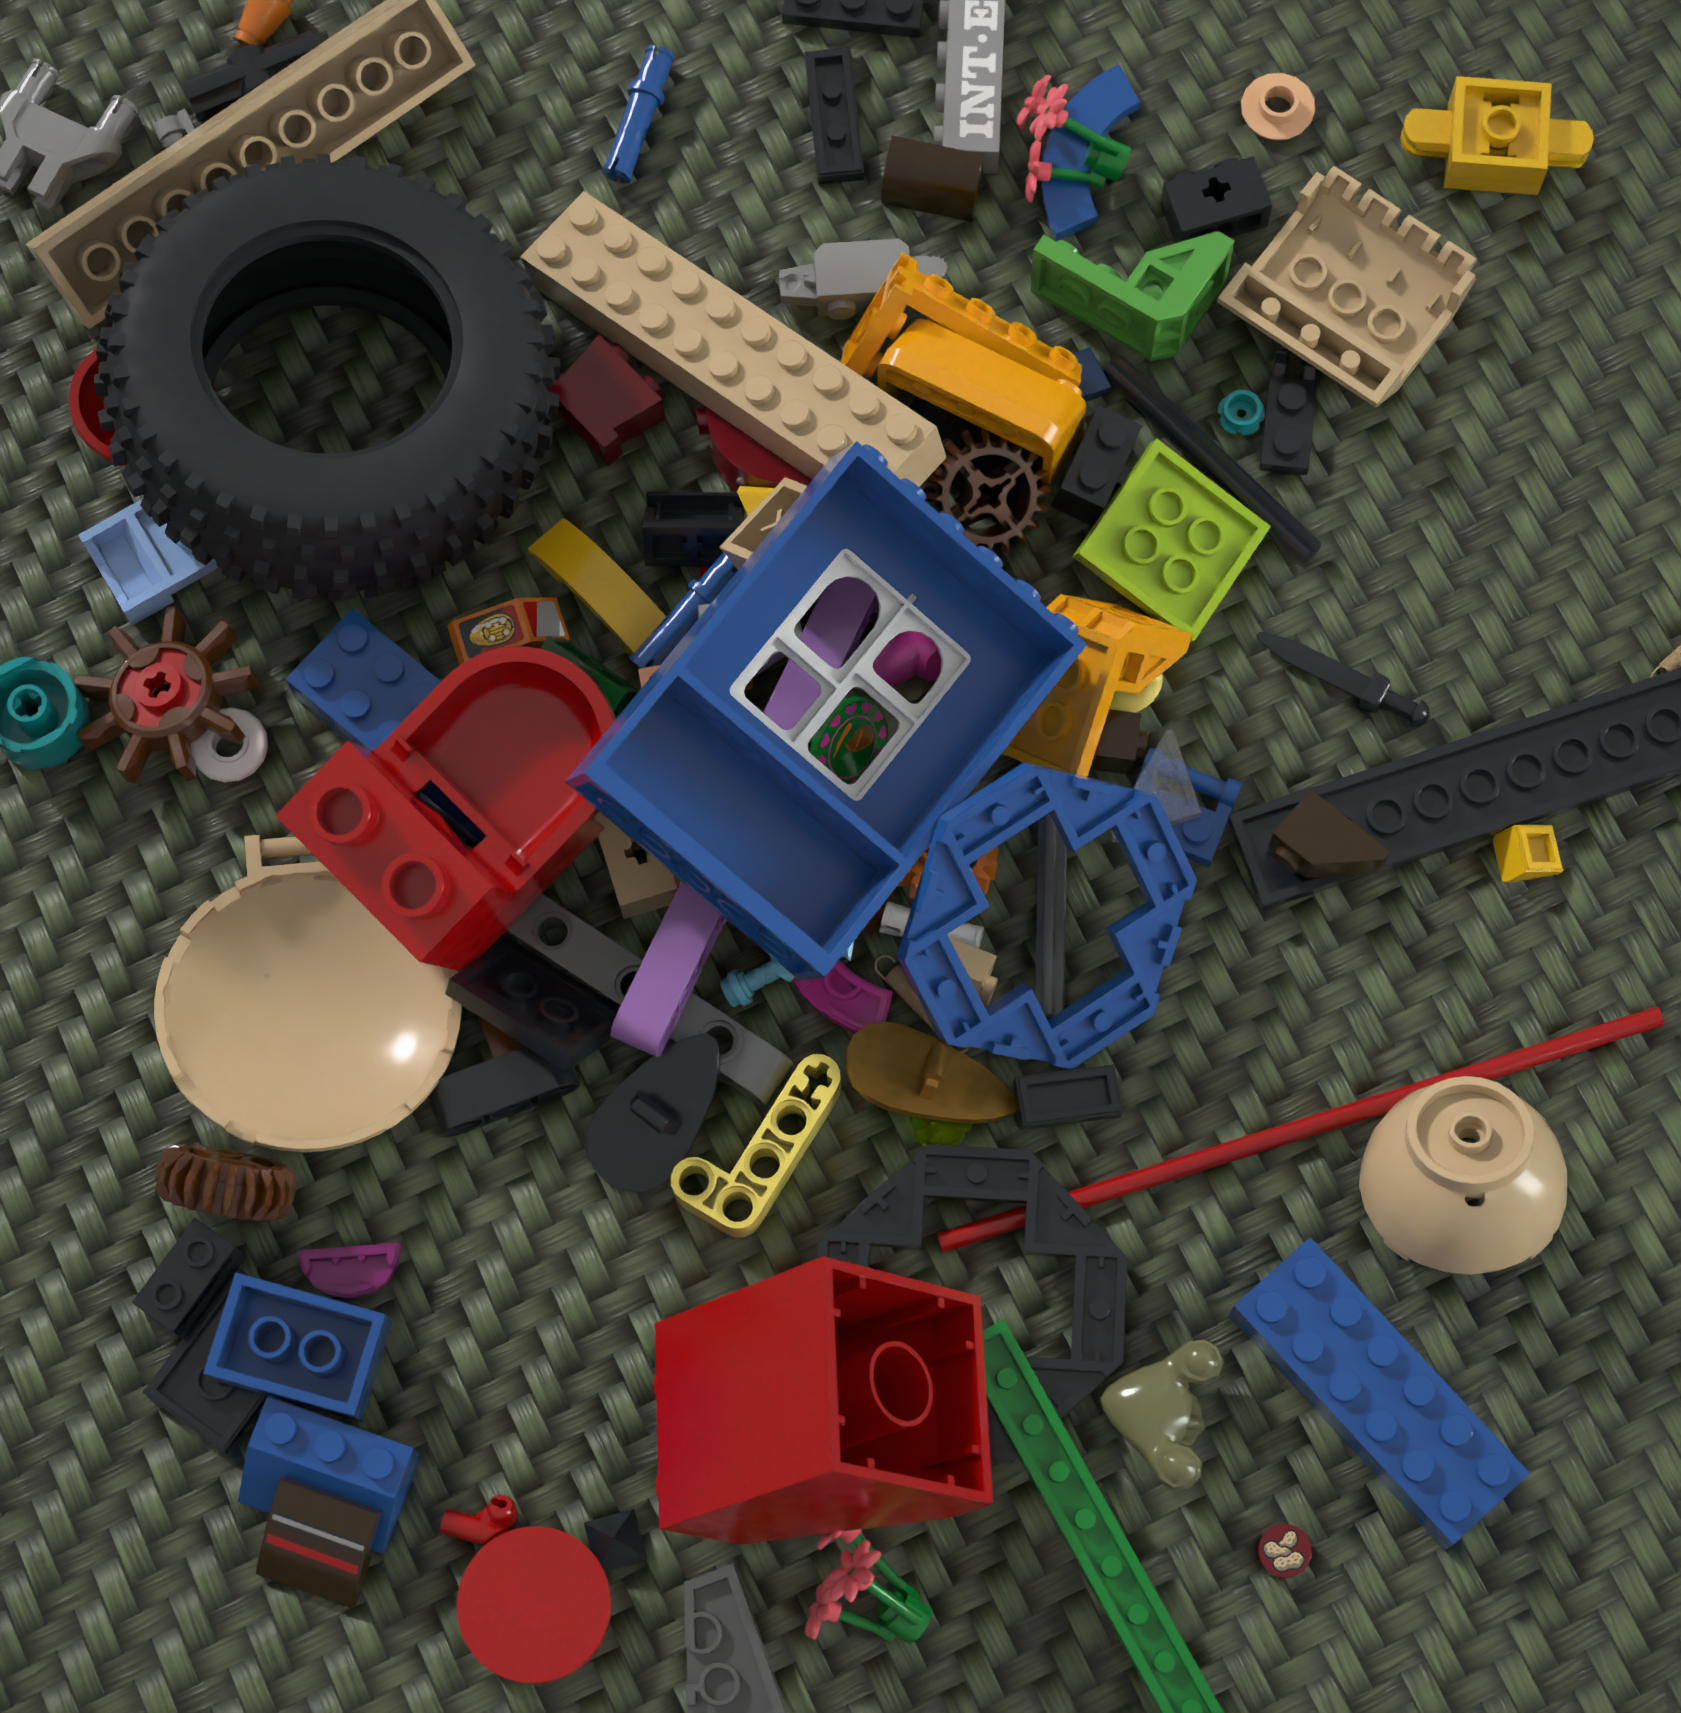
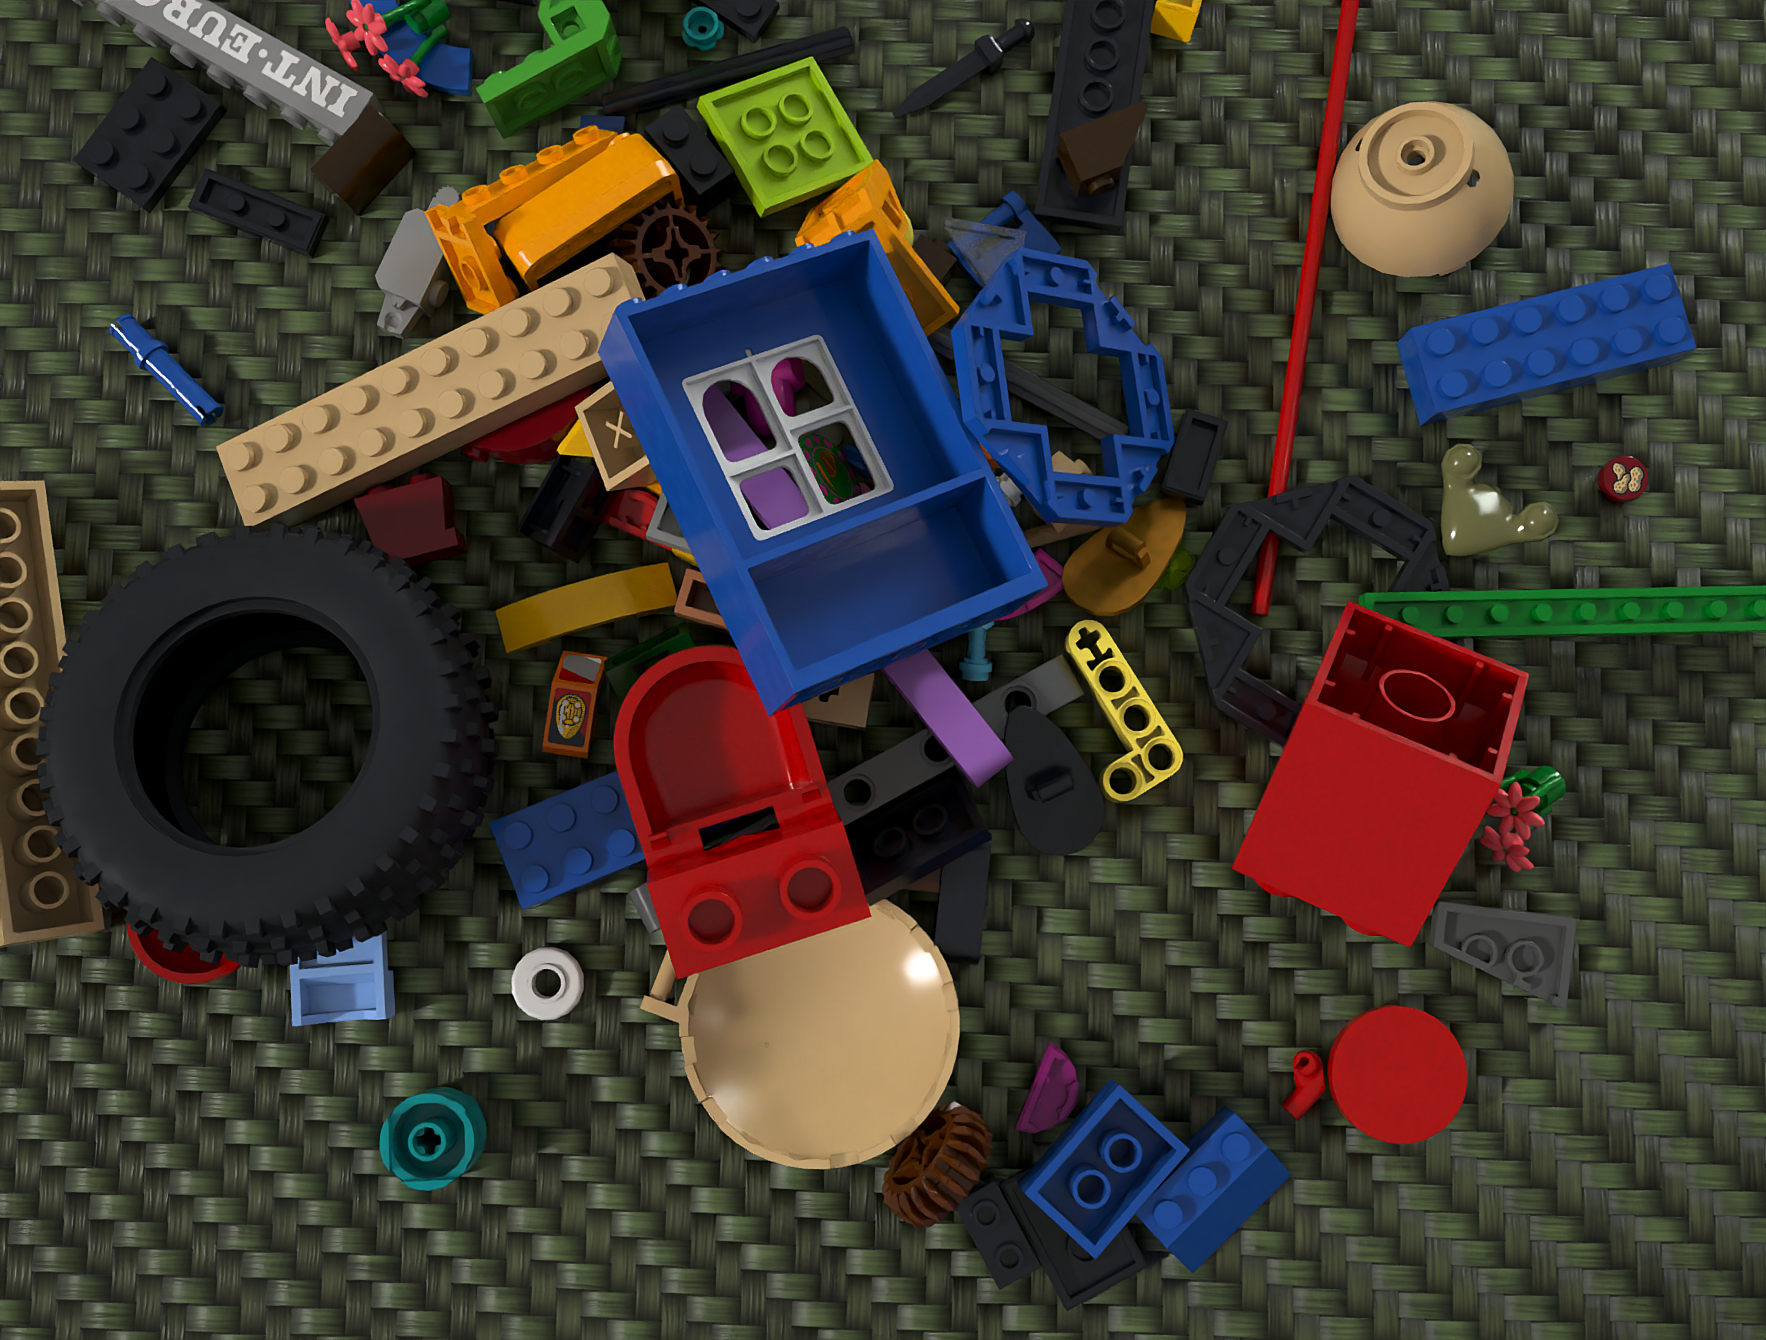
camera: 65 degrees left, 10 degrees up
(165, 696) = (500, 1028): reddish brown gear -> none
(318, 1542) = (1263, 1223): dark brown slope -> none
(616, 1540) = (1368, 983): black slope -> none
(684, 615) = (642, 551): blue pin -> none

